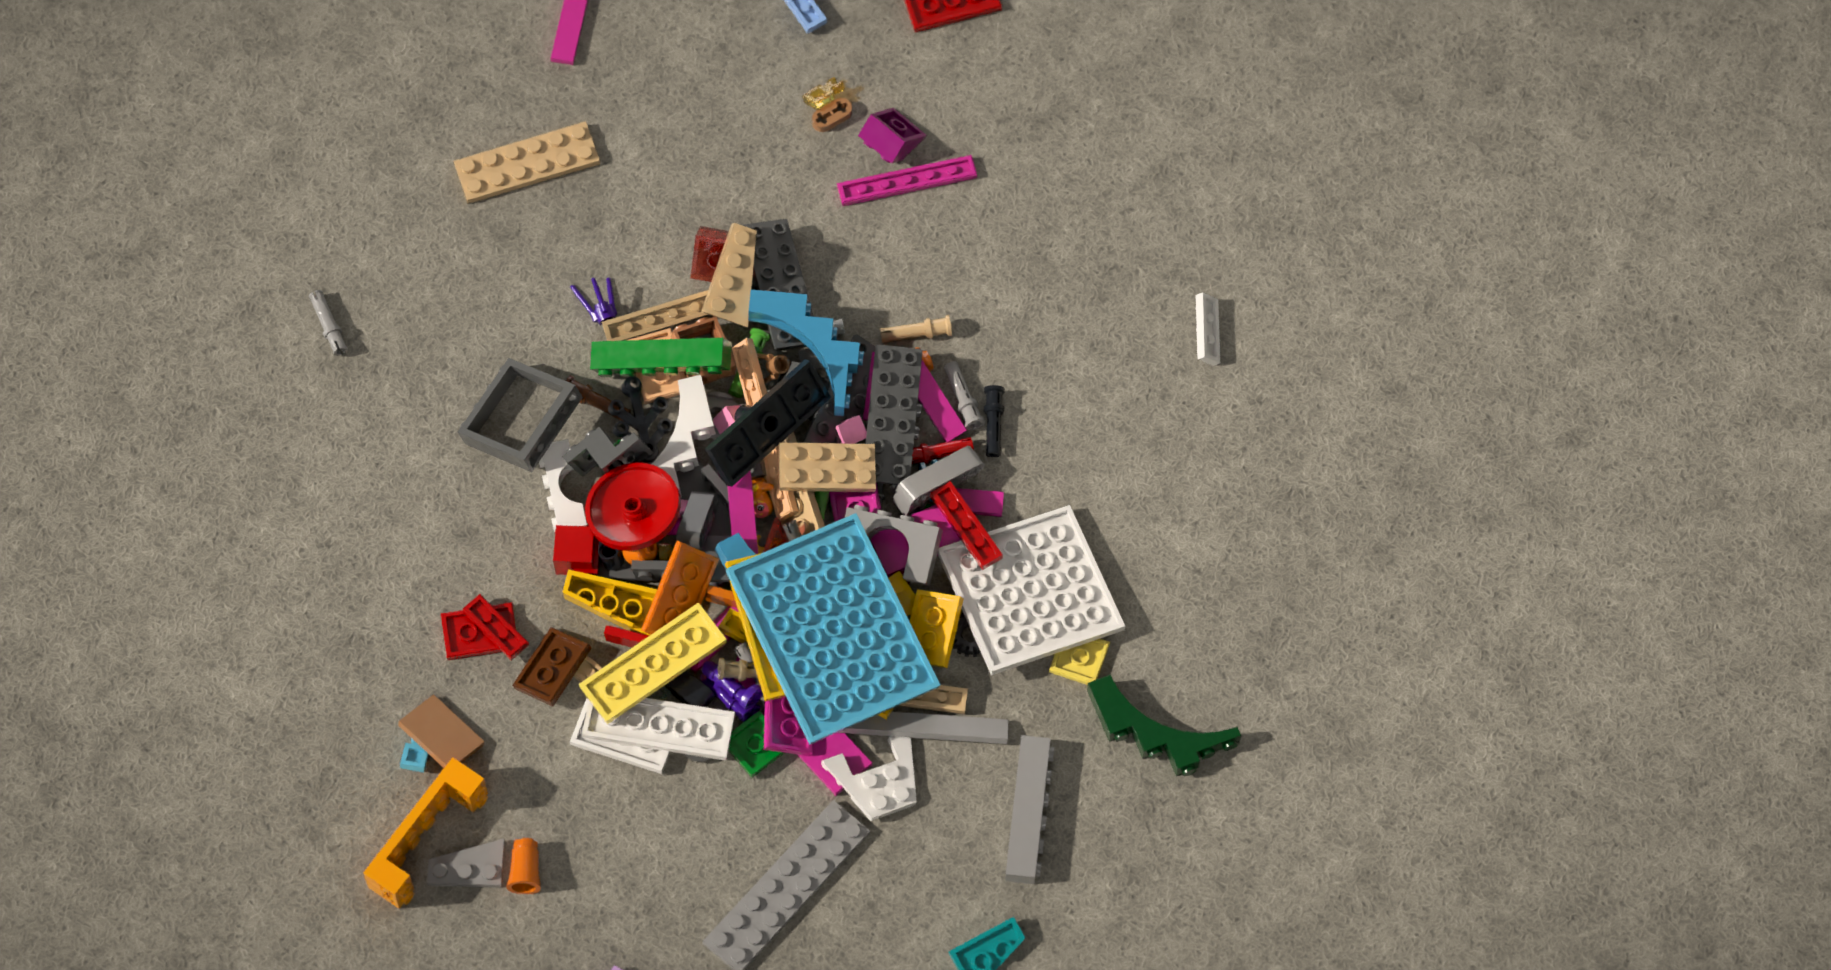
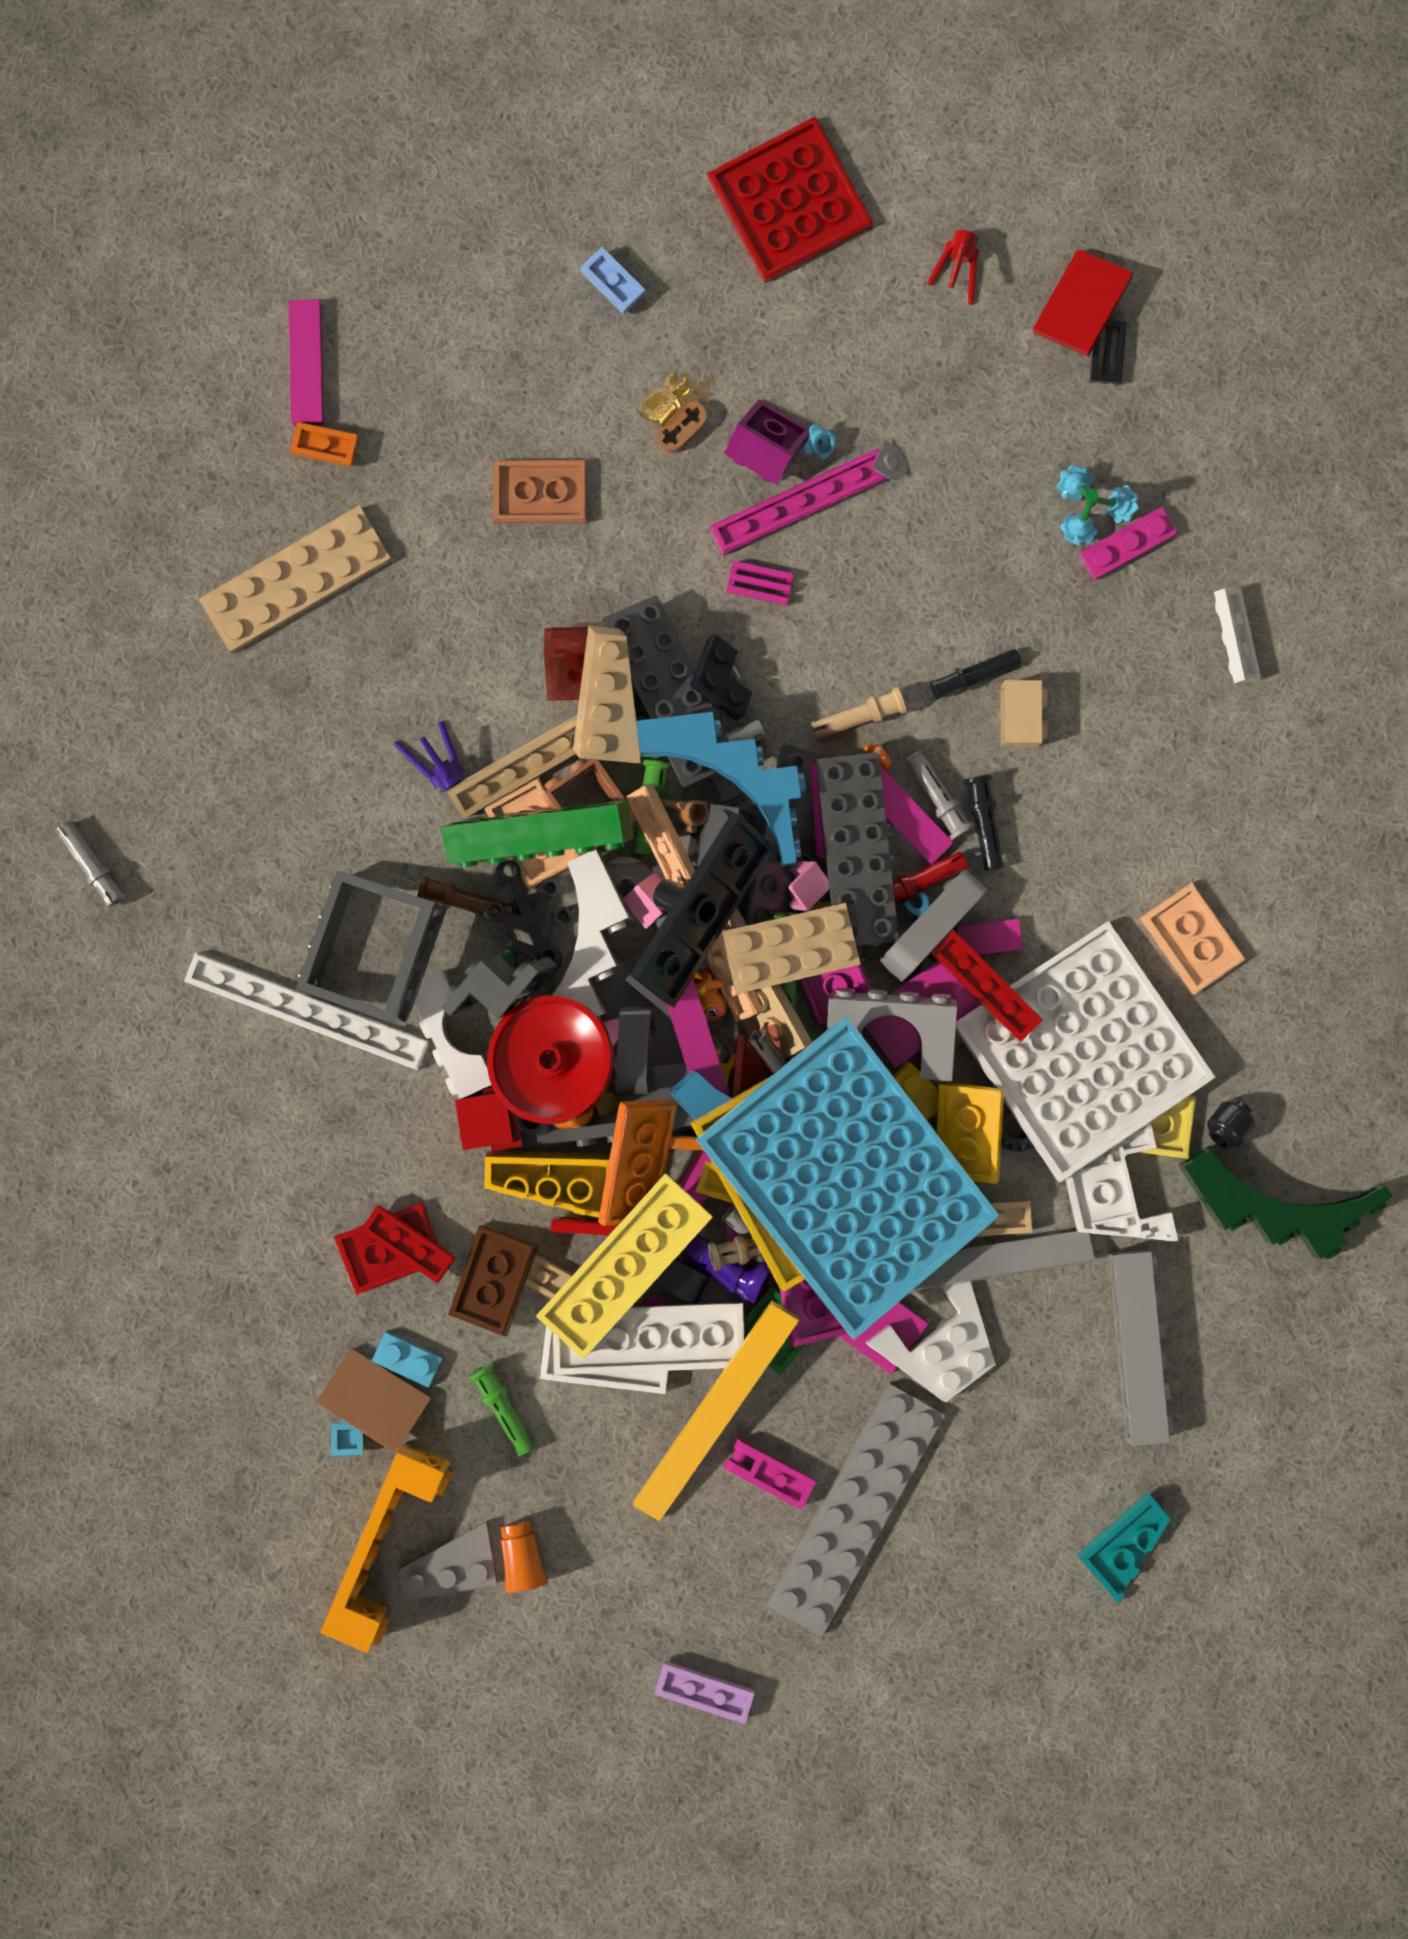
camera: 10 degrees left, 20 degrees up
(460, 455) = (306, 1011): none -> white tile
(473, 712) = (407, 1359): none -> medium azure plate
(533, 749) = (496, 1396): none -> bright green pin
(570, 77) = (324, 444): none -> orange plate
(696, 785) = (716, 1410): none -> yellow tile
(718, 138) = (539, 491): none -> nougat tile
(728, 847) = (770, 1474): none -> dark pink plate
(815, 284) = (714, 680): none -> black plate
(868, 221) = (785, 588): none -> dark pink tile
(936, 140) = (827, 445): none -> medium azure plate
(979, 166) = (890, 462): none -> light grey piece
(1008, 319) = (974, 674): none -> black axle
(1024, 695) = (1105, 1199): none -> white wing
(1036, 351) = (1022, 713): none -> tan brick
(1061, 36) = (962, 250): none -> red plant
(1111, 205) = (1077, 482): none -> medium azure plant
(1131, 532) = (1192, 938): none -> light nougat tile
(1131, 664) = (1230, 1124): none -> black head
(1141, 253) = (1127, 543): none -> dark pink plate
(1142, 86) = (1083, 302): none -> red tile
(1149, 140) = (1105, 378): none -> black tile

